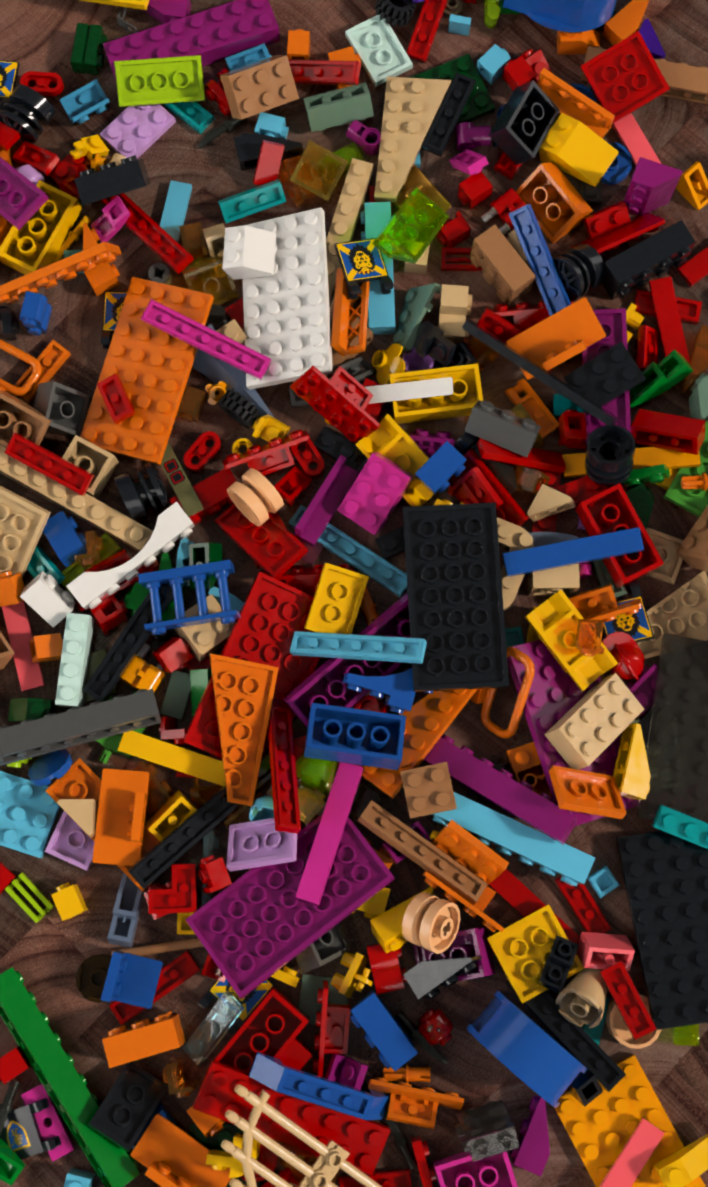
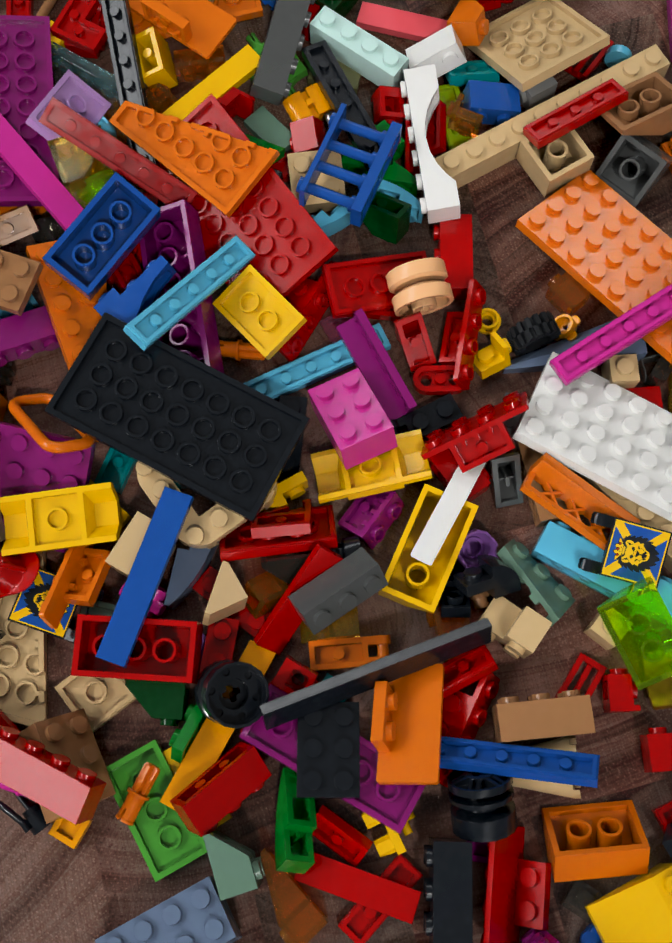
camera: 120 degrees right, 5 degrees down
(46, 647) = (391, 31): orange brick -> none
(116, 398) = (612, 213): red plate -> none
(141, 491) = (496, 191): black wheel -> none
(180, 483) = (485, 234): olive sticker -> none
(201, 451) = (508, 281): red plate -> none
(213, 873) = (72, 58): red brick -> none
(388, 362) = (495, 520): yellow plate -> none
(441, 468) = (333, 494): blue brick -> none
(502, 207) = (615, 778): red piece -> none
(589, 637) = (40, 533): clear orange bracket -> none

